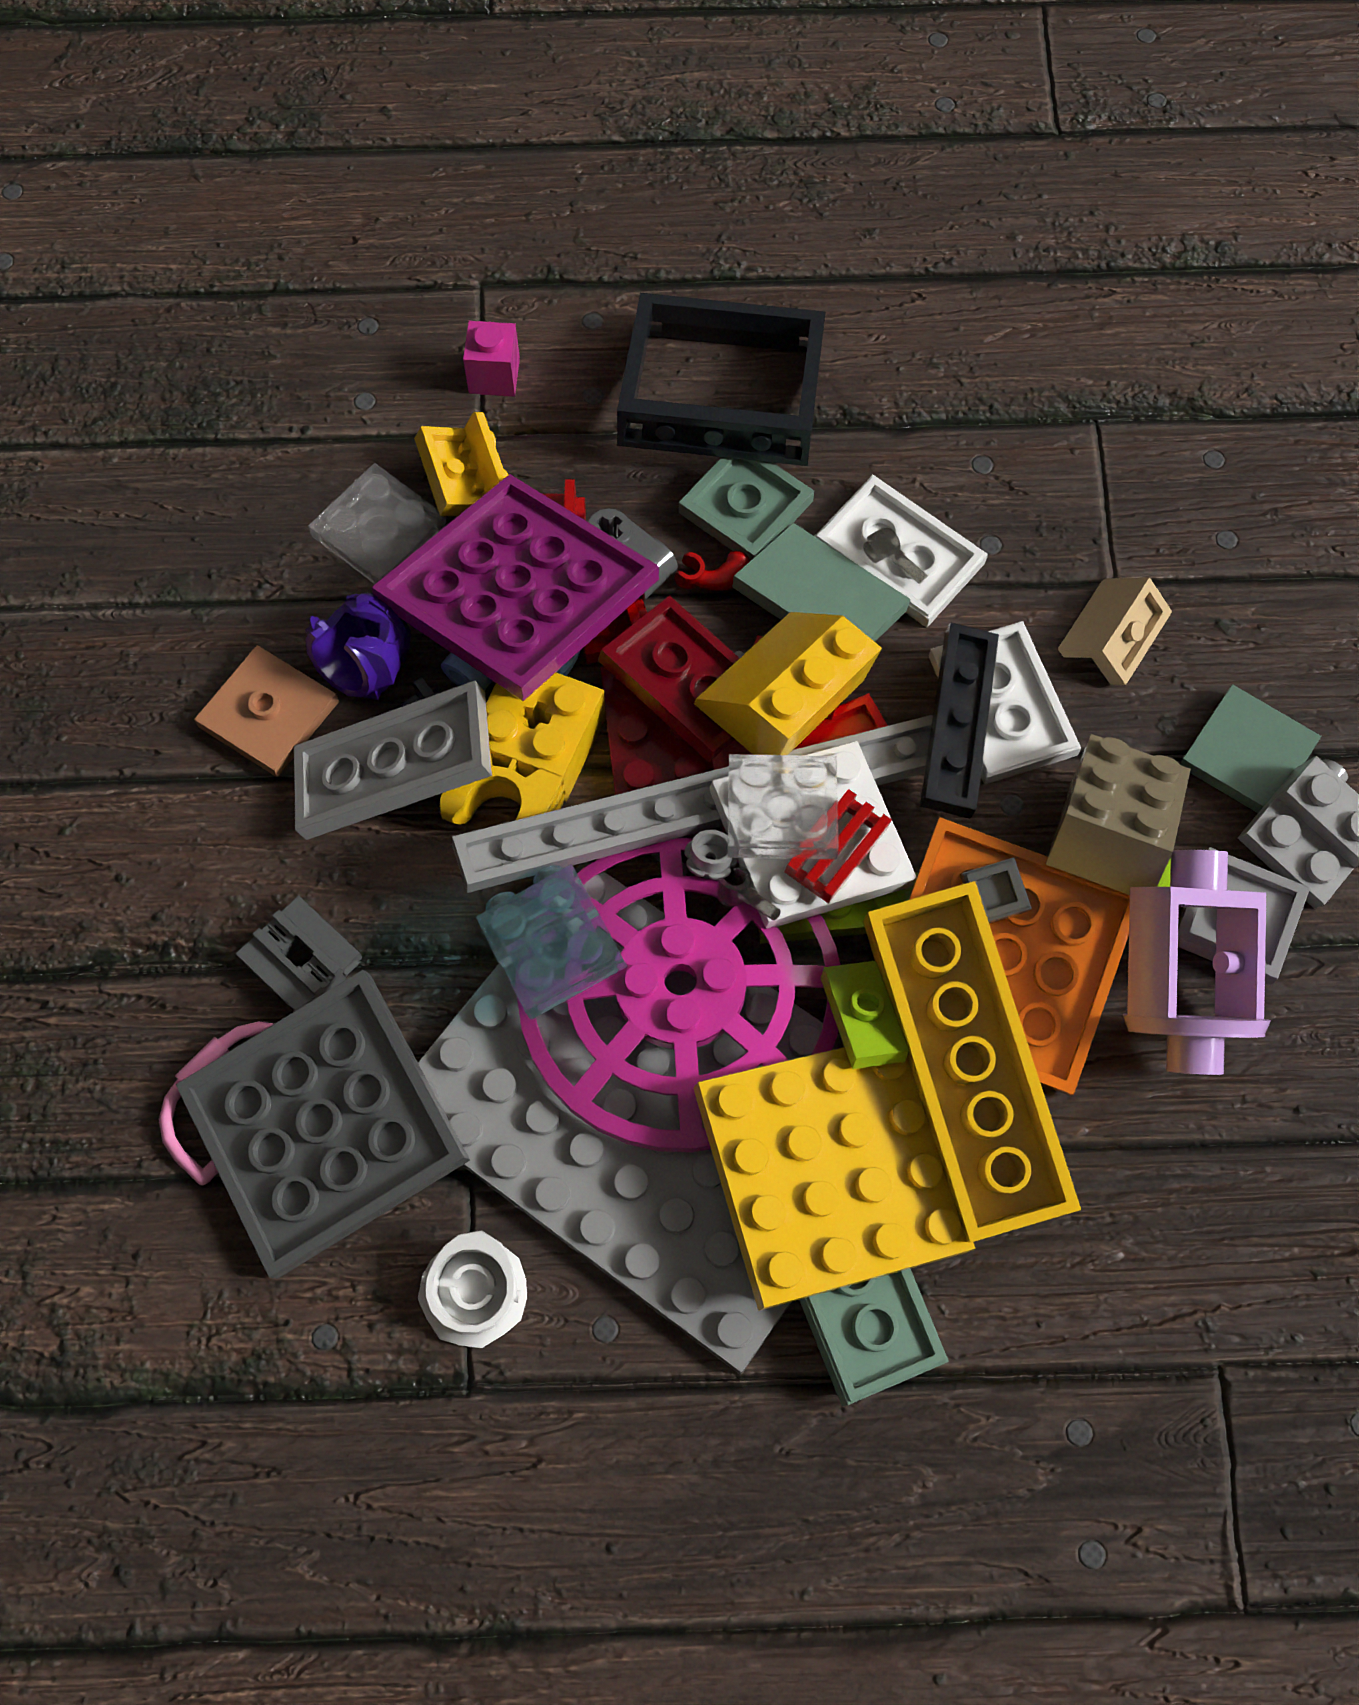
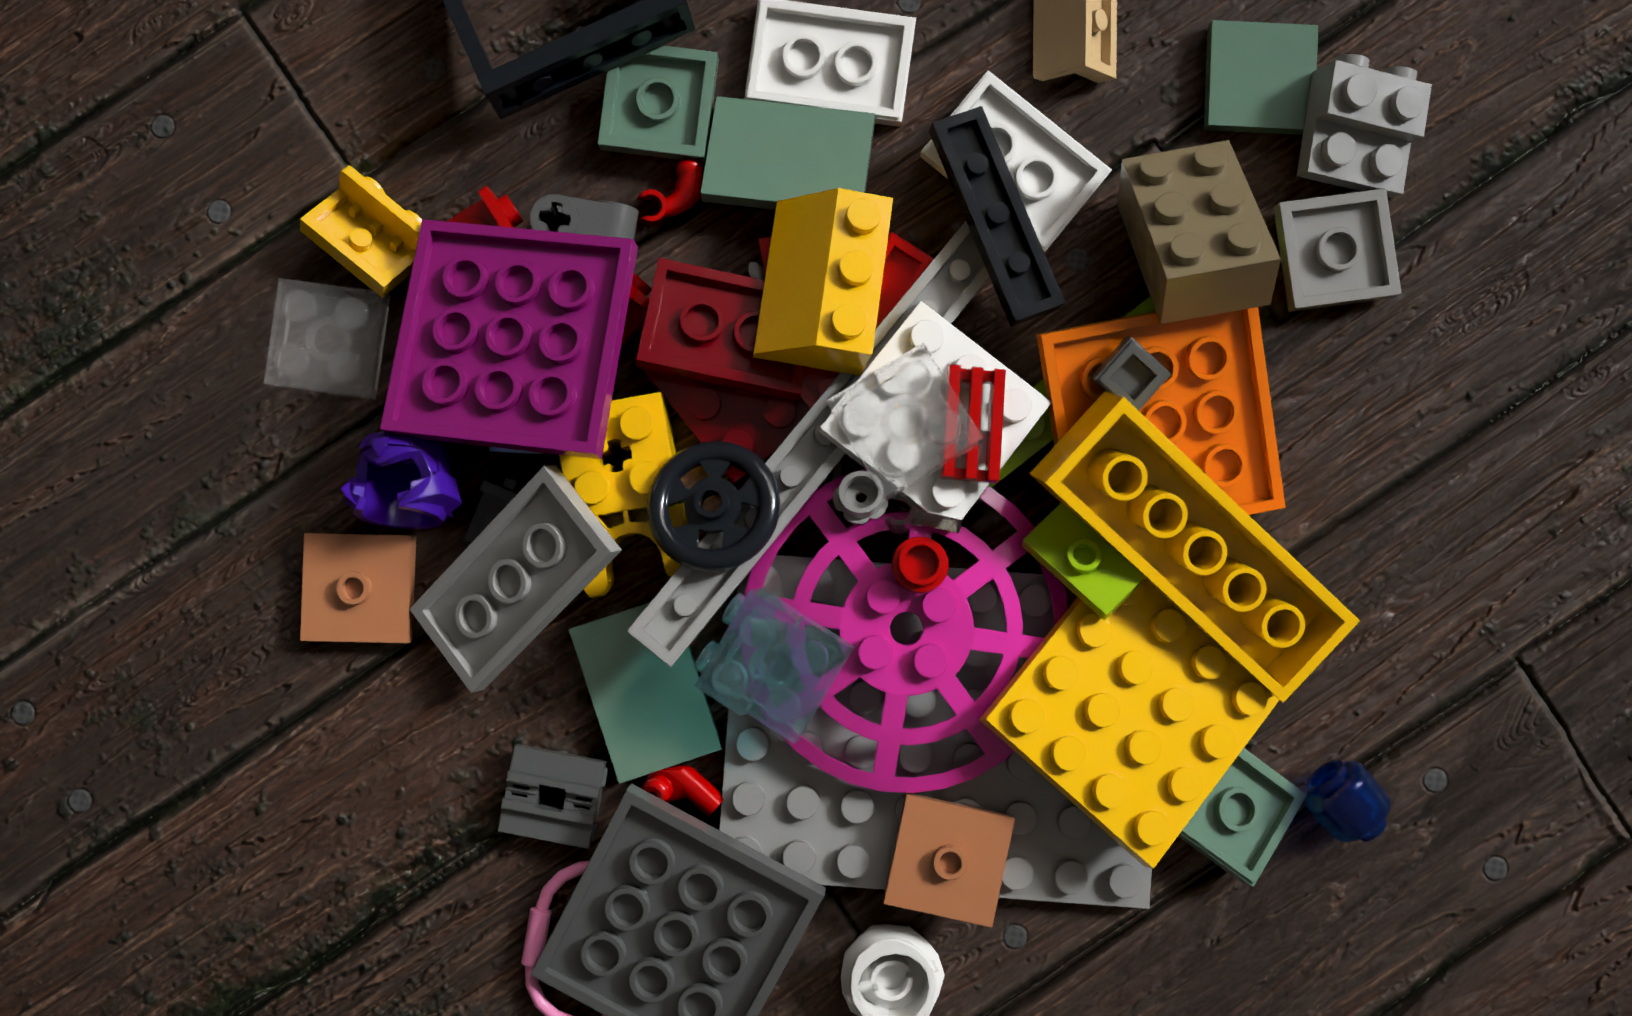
camera: 30 degrees left, 20 degrees up
(413, 1015) = (684, 783): none -> red arm
(428, 927) = (643, 706): none -> sand green tile
(491, 358) = (313, 95): dark pink brick -> none
(587, 822) = (738, 543): none -> black plate
(590, 1204) = (948, 859): none -> nougat plate
(724, 930) = (920, 565): none -> red plate
(886, 544) = (821, 70): clear smoke hand -> none
(982, 1385) = (1347, 801): none -> clear blue head
(1197, 1041) = (1367, 391): lavender piece -> none

